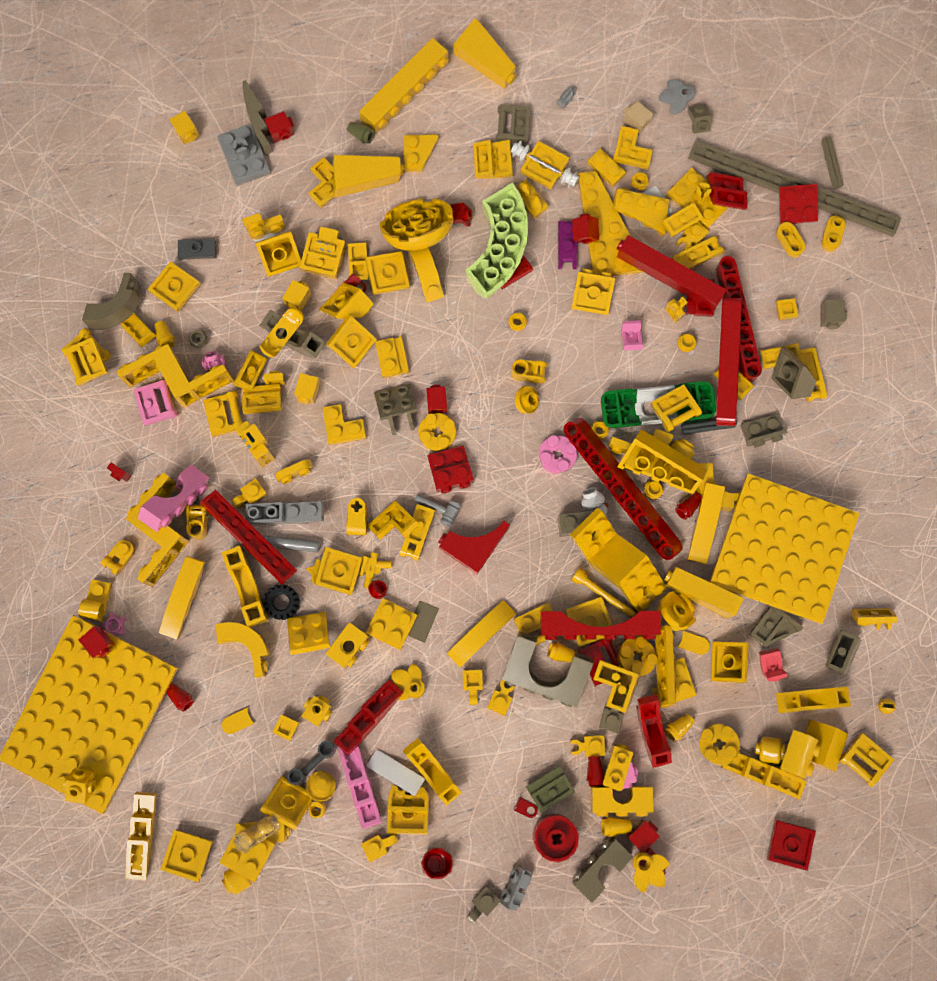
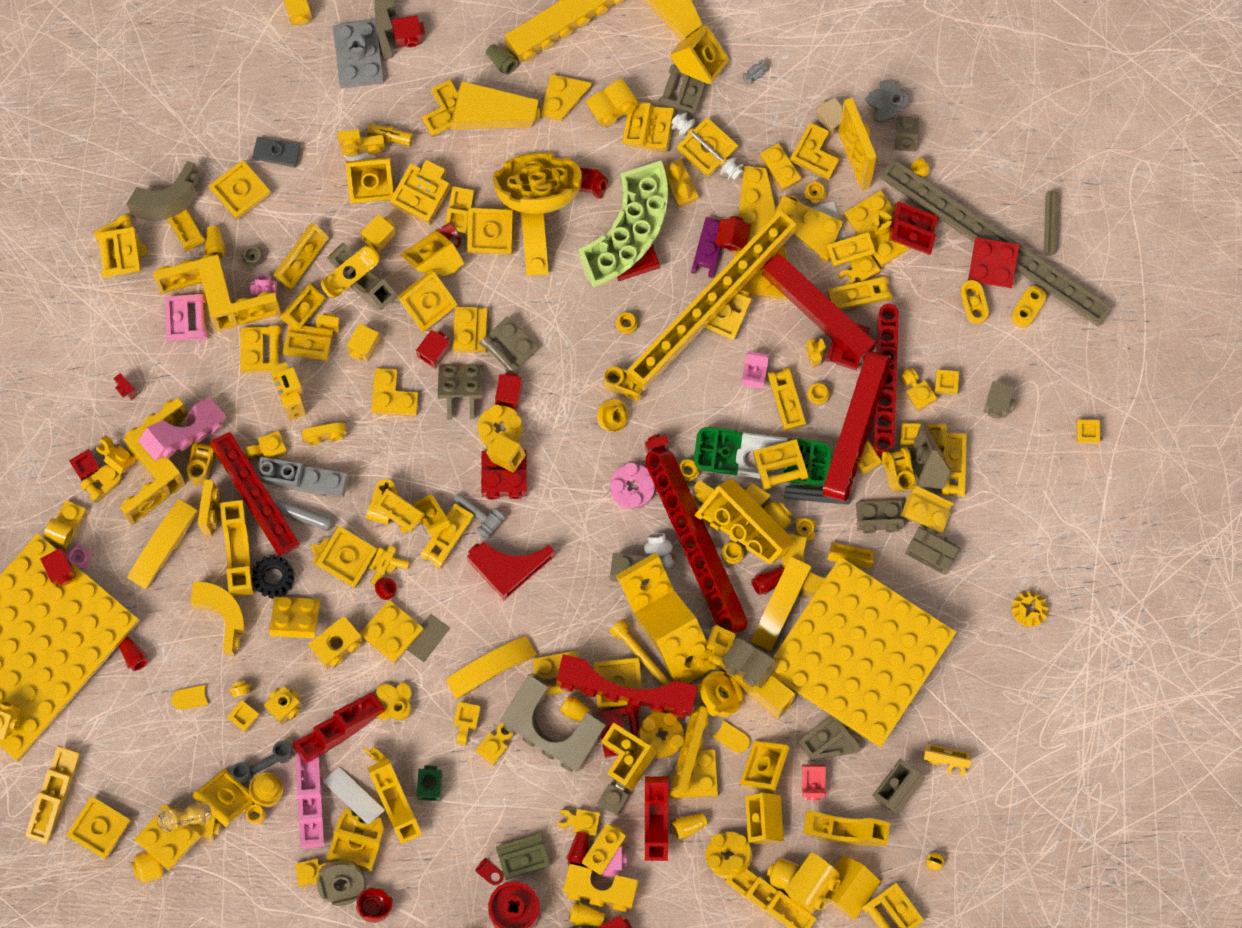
camera: 15 degrees right, 5 degrees down
(100, 545) = (84, 464): none -> red plate
(124, 533) = (118, 457): none -> yellow plate
(212, 553) = (209, 501): none -> yellow plate
(238, 329) = (300, 256): none -> yellow plate
(277, 705) = (240, 688): none -> yellow plate
(286, 213) = (390, 134): none -> yellow pin
(366, 379) = (433, 348): none -> red brick
(373, 522) = (399, 510): none -> yellow plate
(400, 843) = (338, 870): none -> dark tan plate
(406, 733) = (375, 754): none -> yellow plate
(429, 357) = (513, 340): none -> dark tan plate
(448, 452) = (505, 453): none -> yellow brick
(456, 755) = (433, 793): none -> dark green brick
(459, 146) = (612, 103): none -> yellow brick
(520, 92) = (700, 56): none -> yellow slope
(568, 415) = (656, 443): none -> red plate
(586, 286) = (711, 300): none -> yellow brick
(663, 353) = (786, 400): none -> yellow plate
(668, 569) = (719, 642): none -> yellow plate
(669, 131) = (857, 144): none -> yellow plate
(698, 581) = (748, 663): none -> dark tan brick
(709, 451) = (809, 524): none -> yellow plate
(718, 141) = (920, 167): none -> yellow hinge
(741, 707) = (764, 818): none -> yellow brick
(756, 468) = (855, 555): none -> yellow plate
(767, 324) = (919, 394): none -> yellow plate
(770, 389) = (898, 468): none -> yellow piece
(801, 416) = (927, 509): none -> yellow plate
(814, 448) = (932, 550): none -> dark tan brick
(897, 482) = (1034, 618): none -> yellow gear
(909, 322) = (1087, 431): none -> yellow plate

